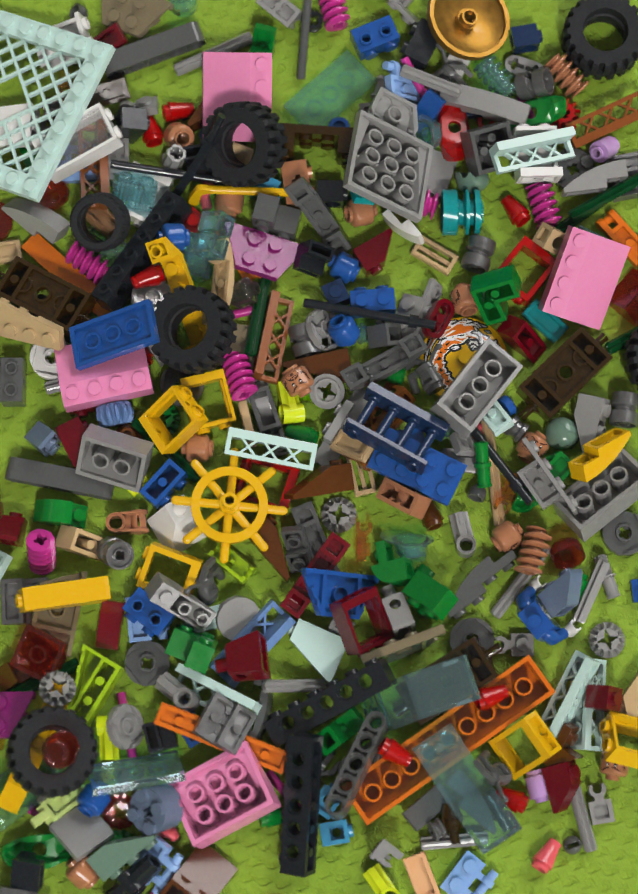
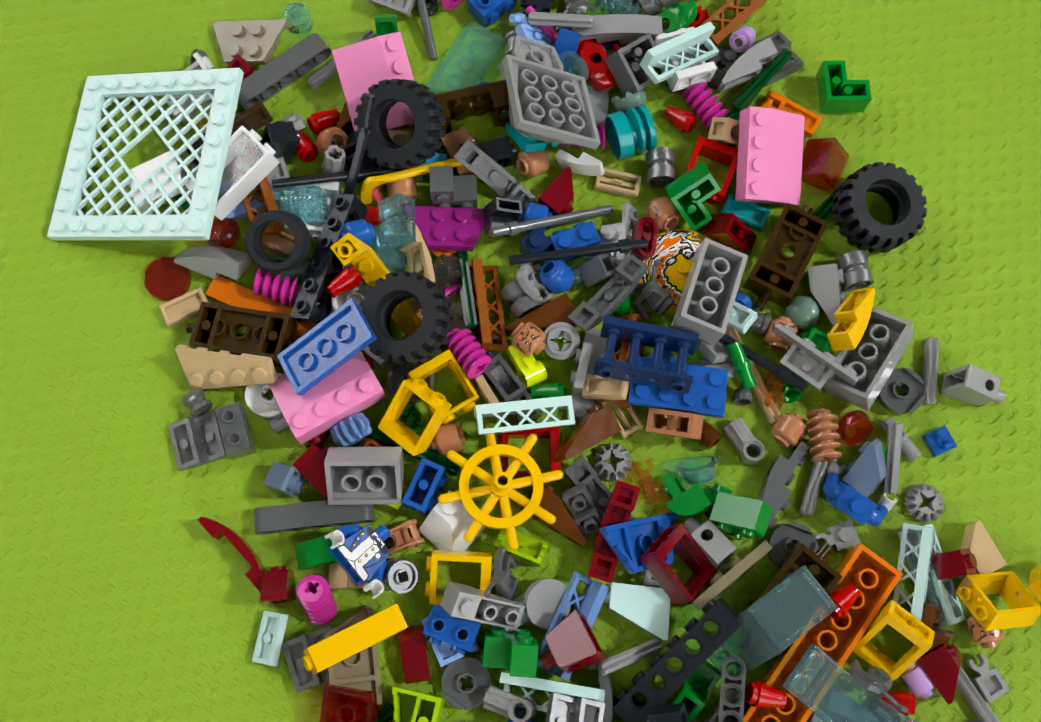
camera: 20 degrees left, 5 degrees down
(90, 524) = (361, 554): none -> torso
(317, 274) = (513, 228): none -> dark grey bar

